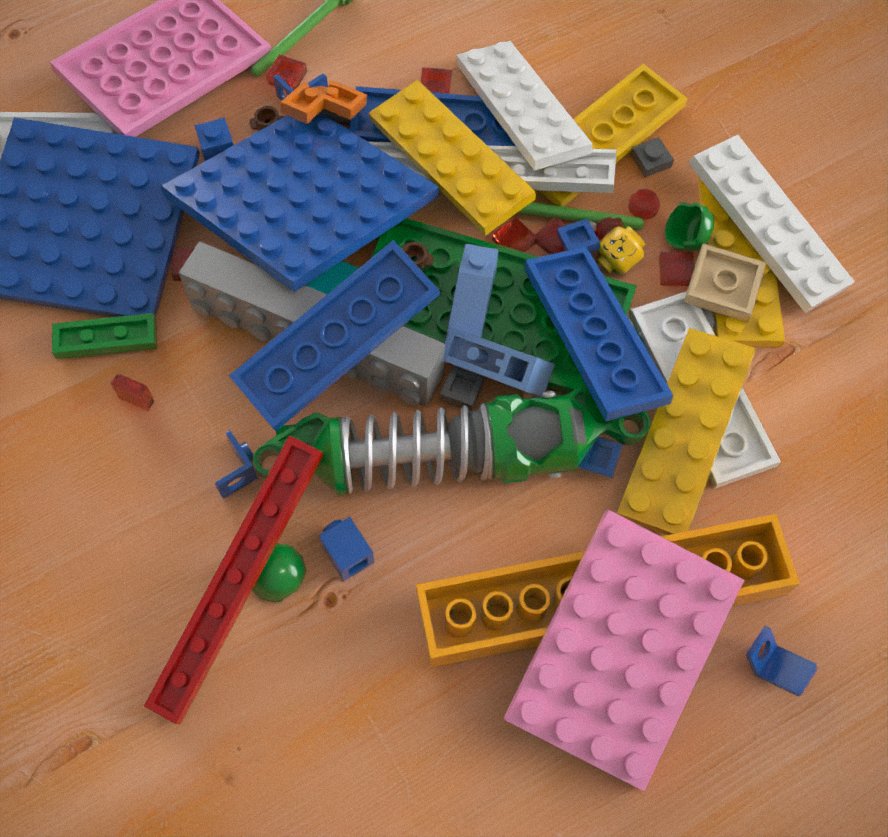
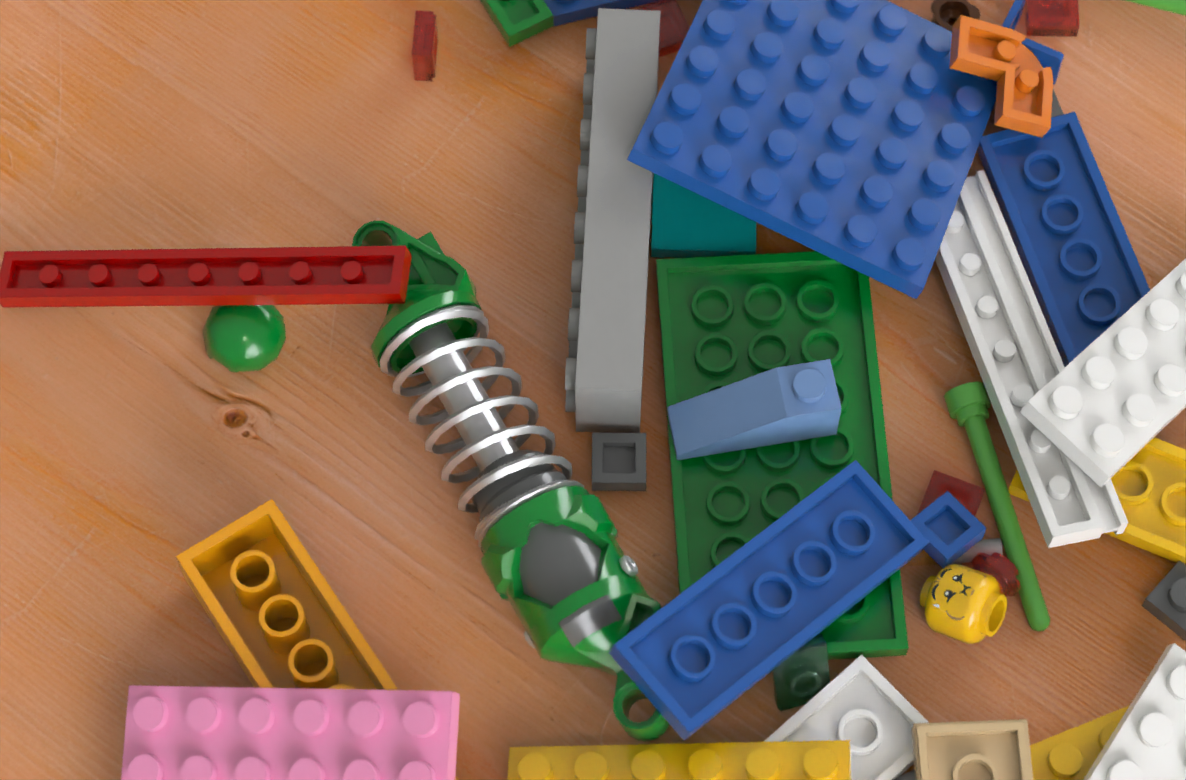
camera: 70 degrees right, 0 degrees up
(246, 472) = (393, 211): blue bracket -> none
(334, 335) = (584, 239): blue plate -> none
(346, 548) = (307, 402): blue brick -> none
(418, 251) = (798, 295): reddish brown plate -> none
(437, 79) = (1148, 222): clear red plate -> none
(452, 157) = (996, 290): yellow plate -> none
(497, 362) = (662, 491): medium blue slope -> none
(515, 236) = (918, 444): clear red tile -> none
(602, 457) = (586, 695): blue plate -> none
(644, 204) = (1077, 616): clear red plate -> none
(675, 268) = (979, 699): clear red tile -> none
(689, 226) = (1058, 695): green hair -> none

